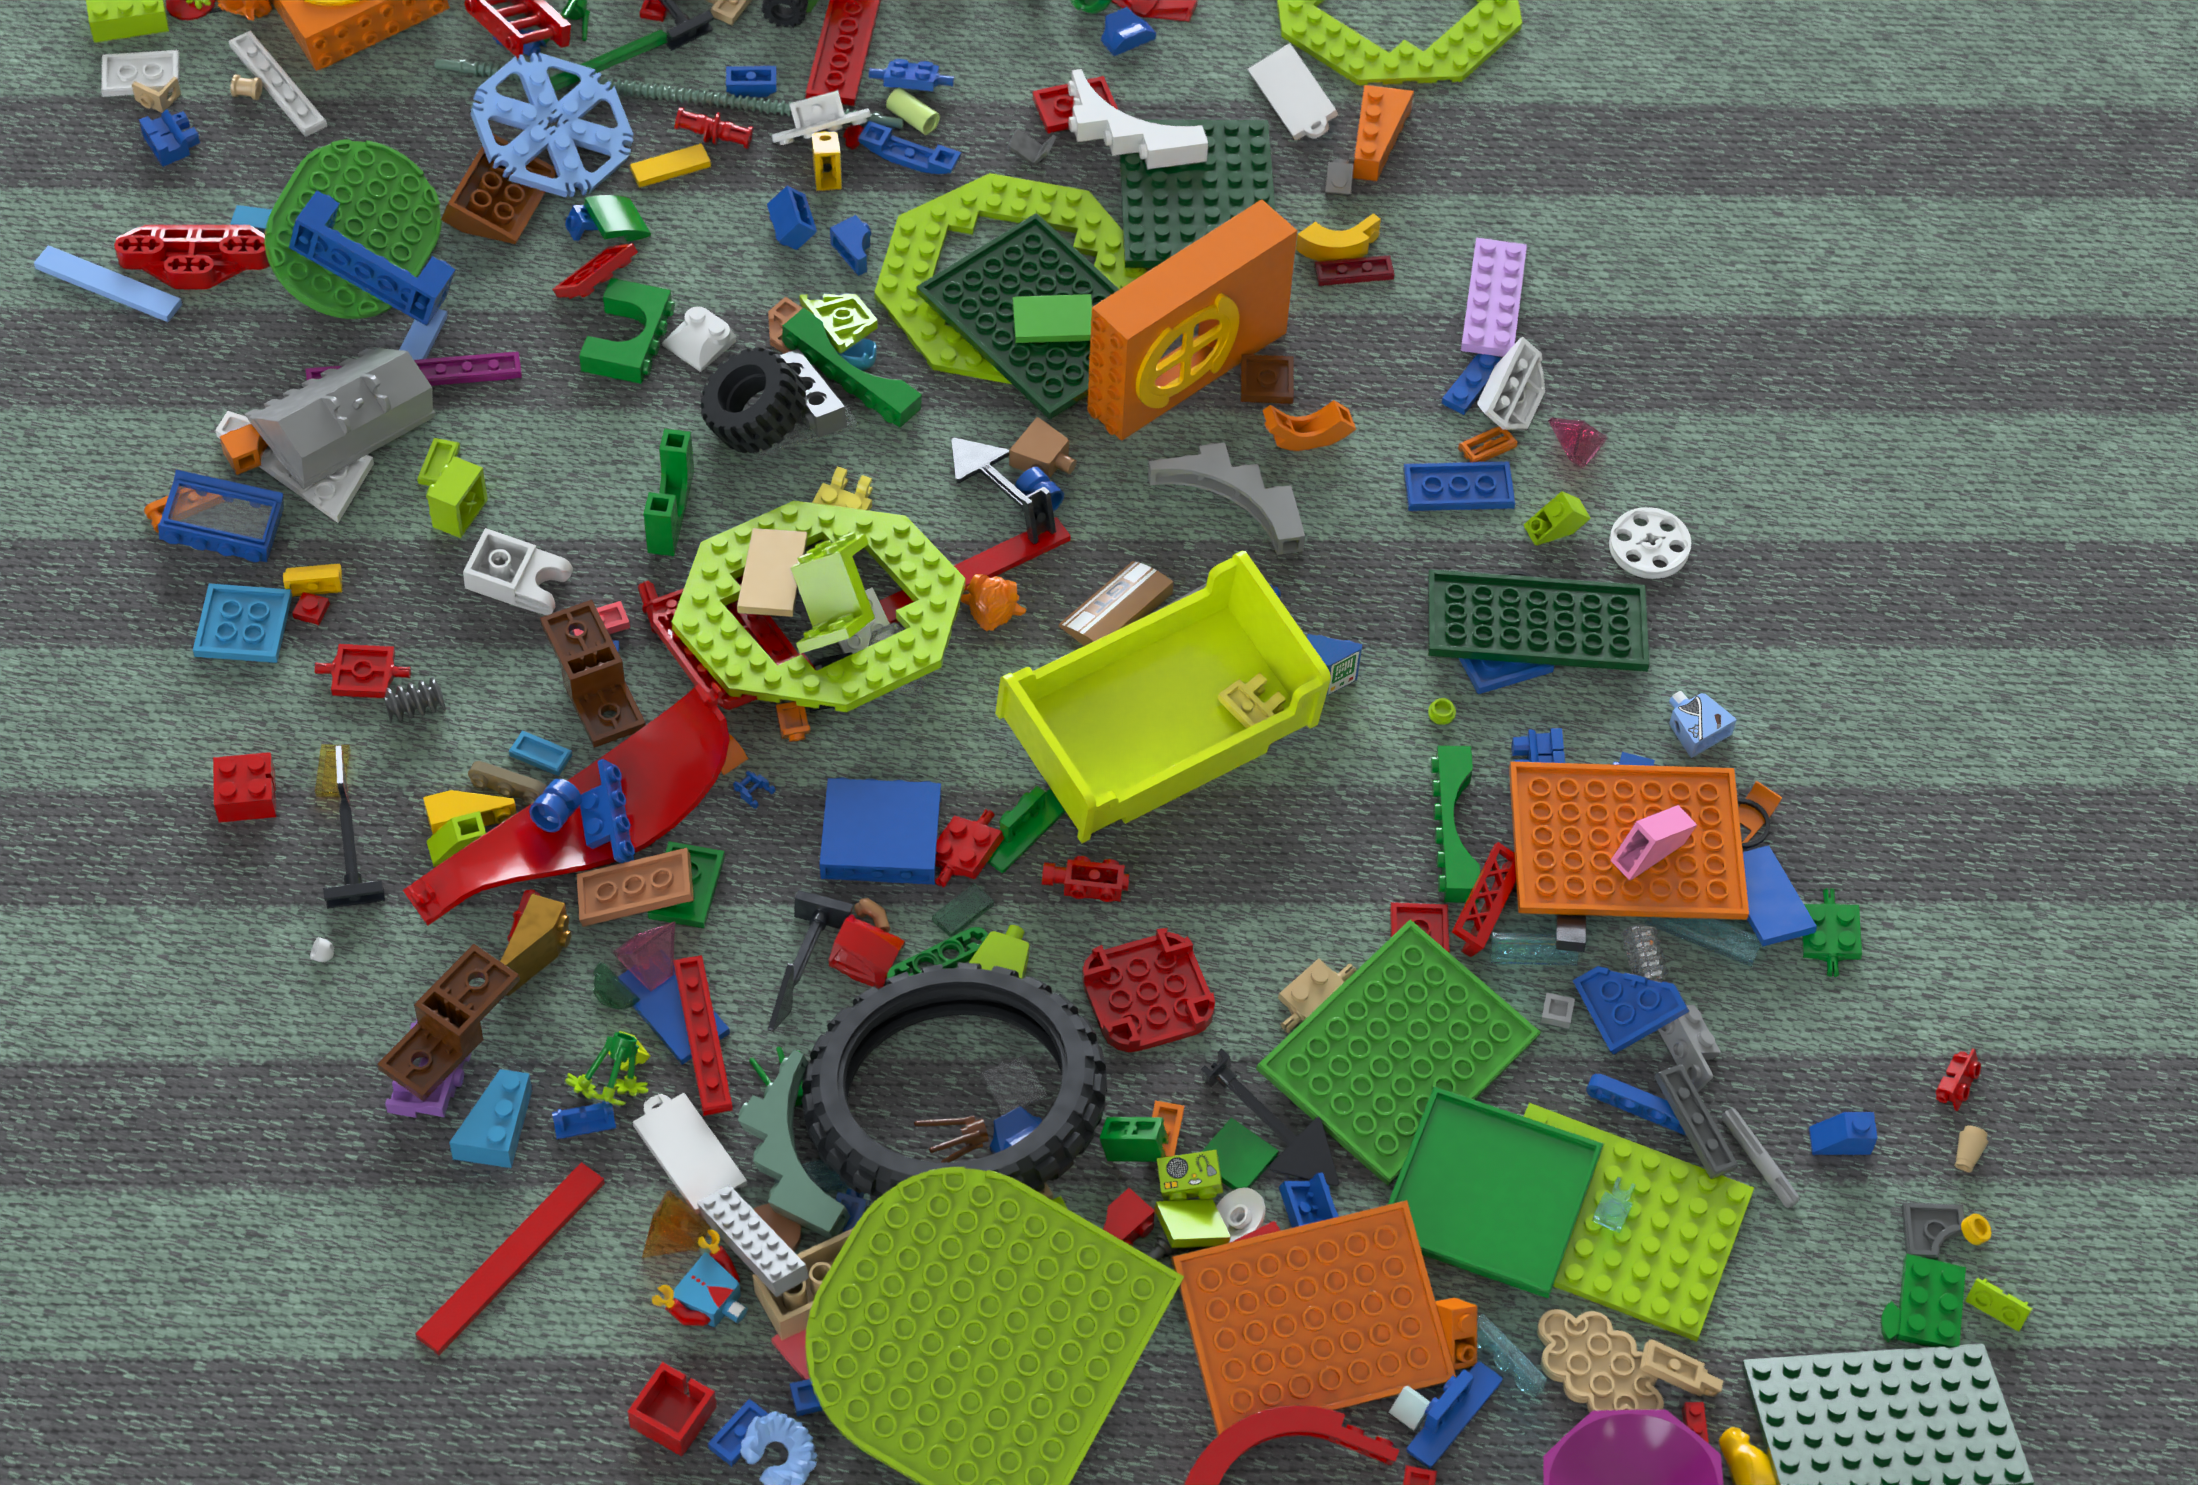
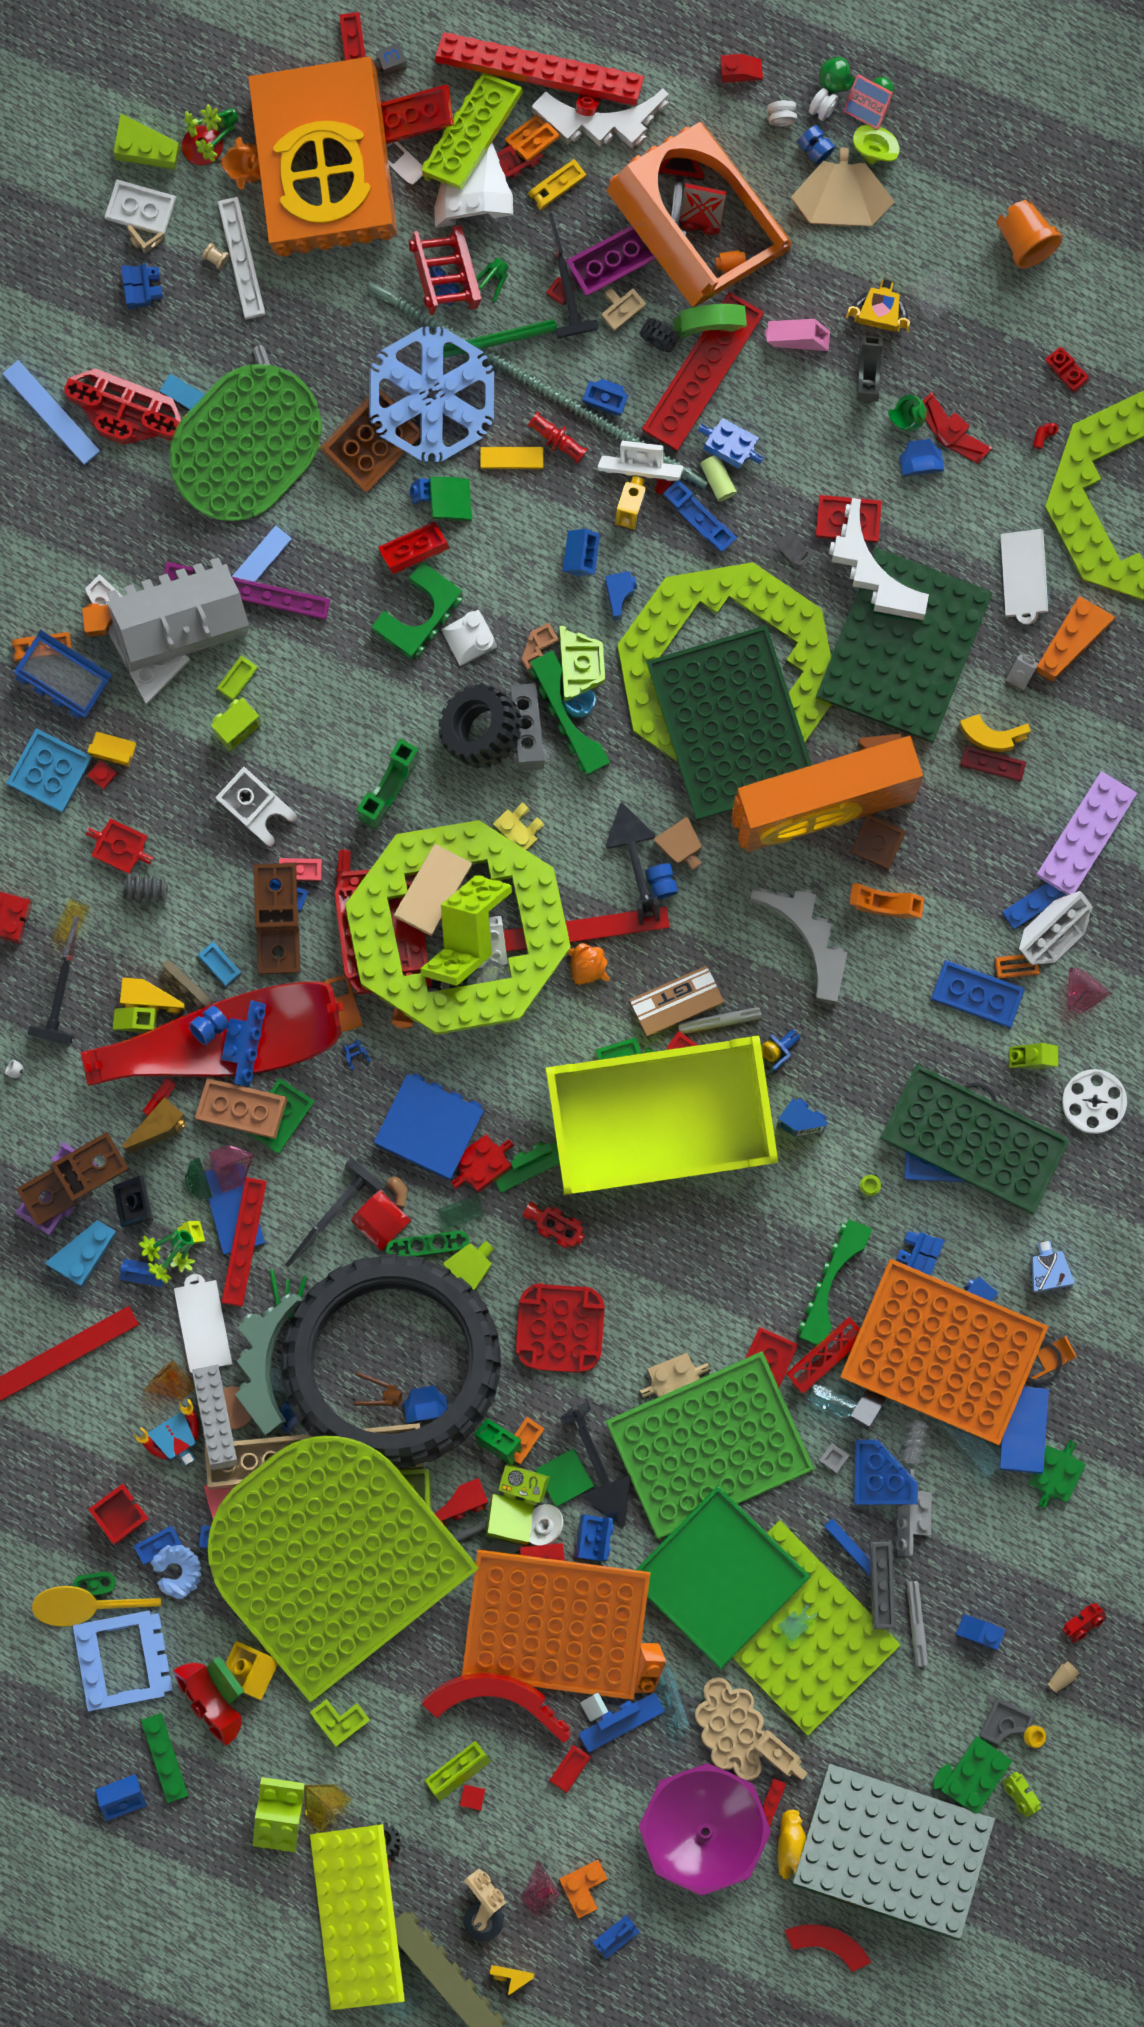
camera: 25 degrees right, 25 degrees up
(319, 242) = (275, 530): blue plate -> none
(539, 1039) = (133, 1201): none -> black slope
(1052, 318) = (735, 734): bright green tile -> none
(1244, 704) = (723, 1137): light yellow plate -> none
(1652, 841) = (956, 1367): bright pink slope -> none

